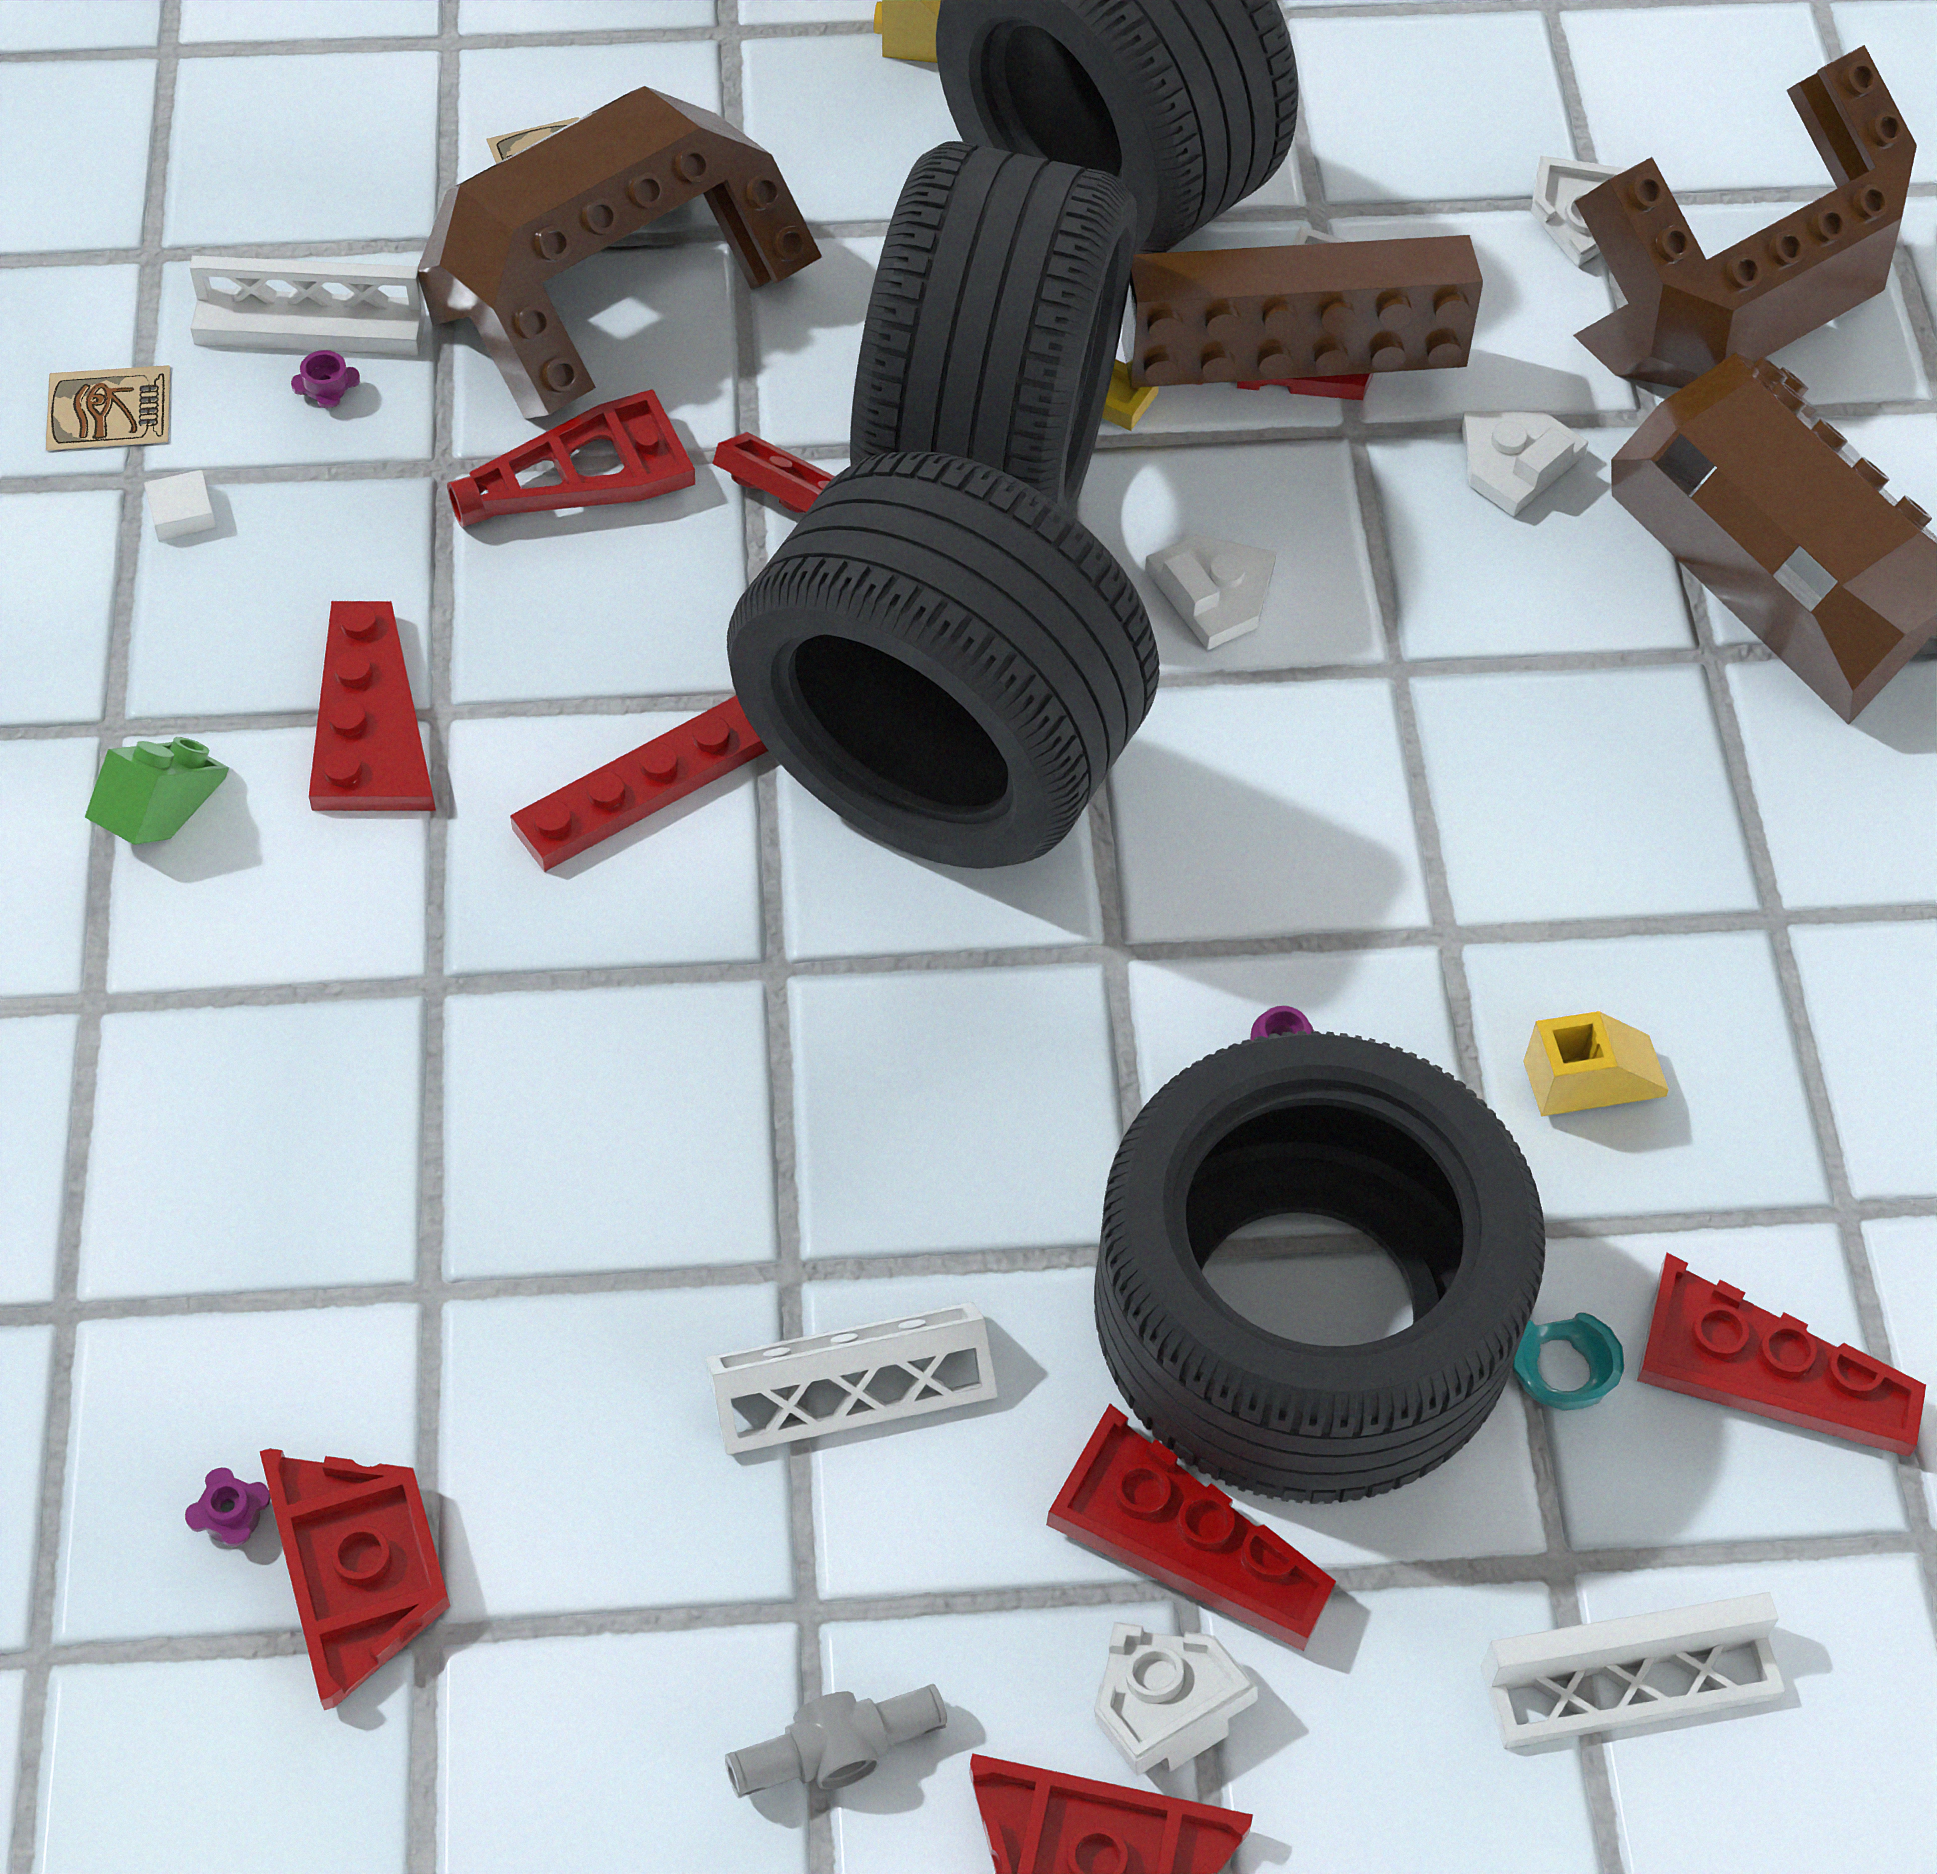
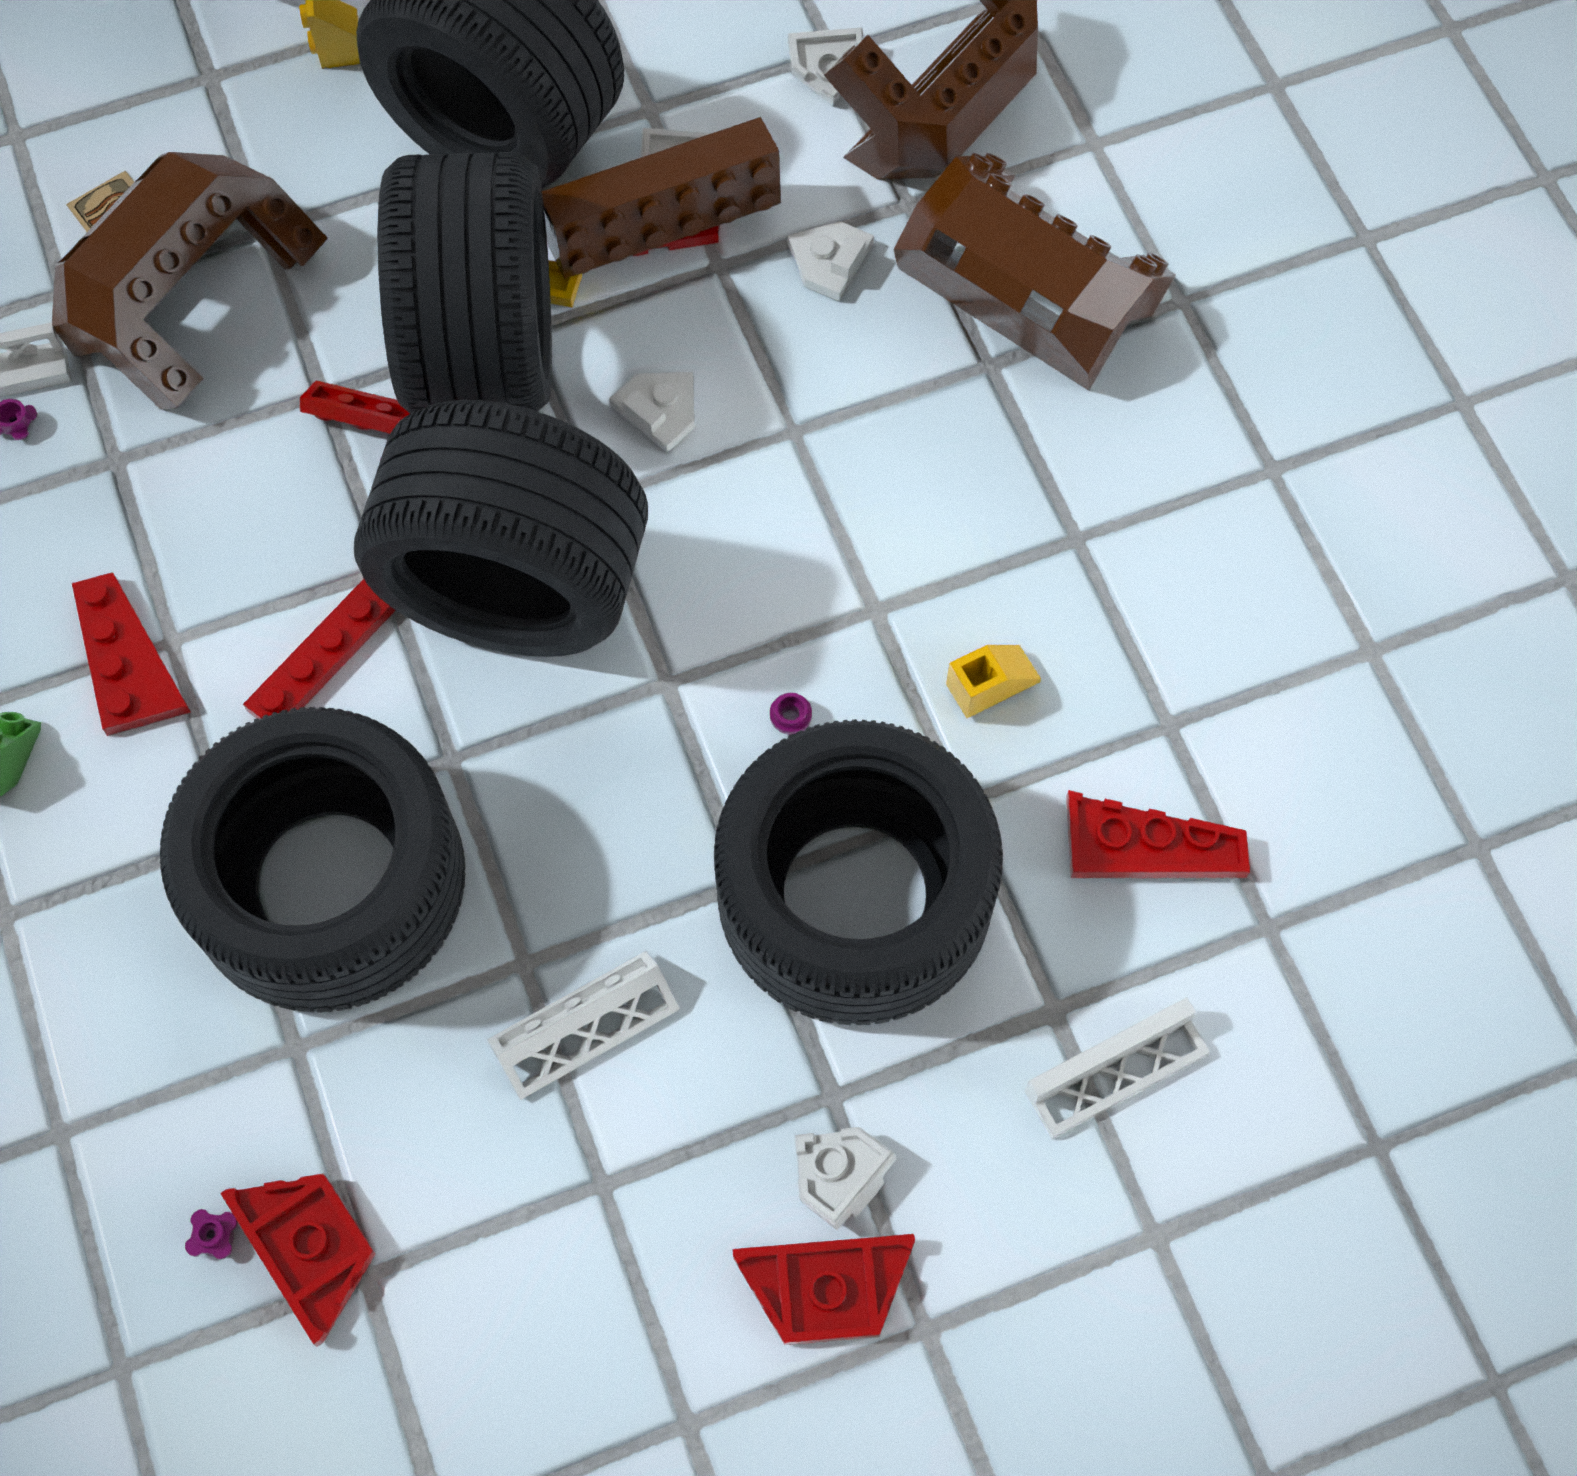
camera: 15 degrees left, 10 degrees up
(520, 912) = (257, 790): none -> black tyre
(640, 434) = (244, 403): red plate -> none
(835, 1740) = (645, 1266): light grey pin -> none
(1164, 1522) = (808, 1061): red wing -> none
(1589, 1338) = (1044, 865): teal piece -> none

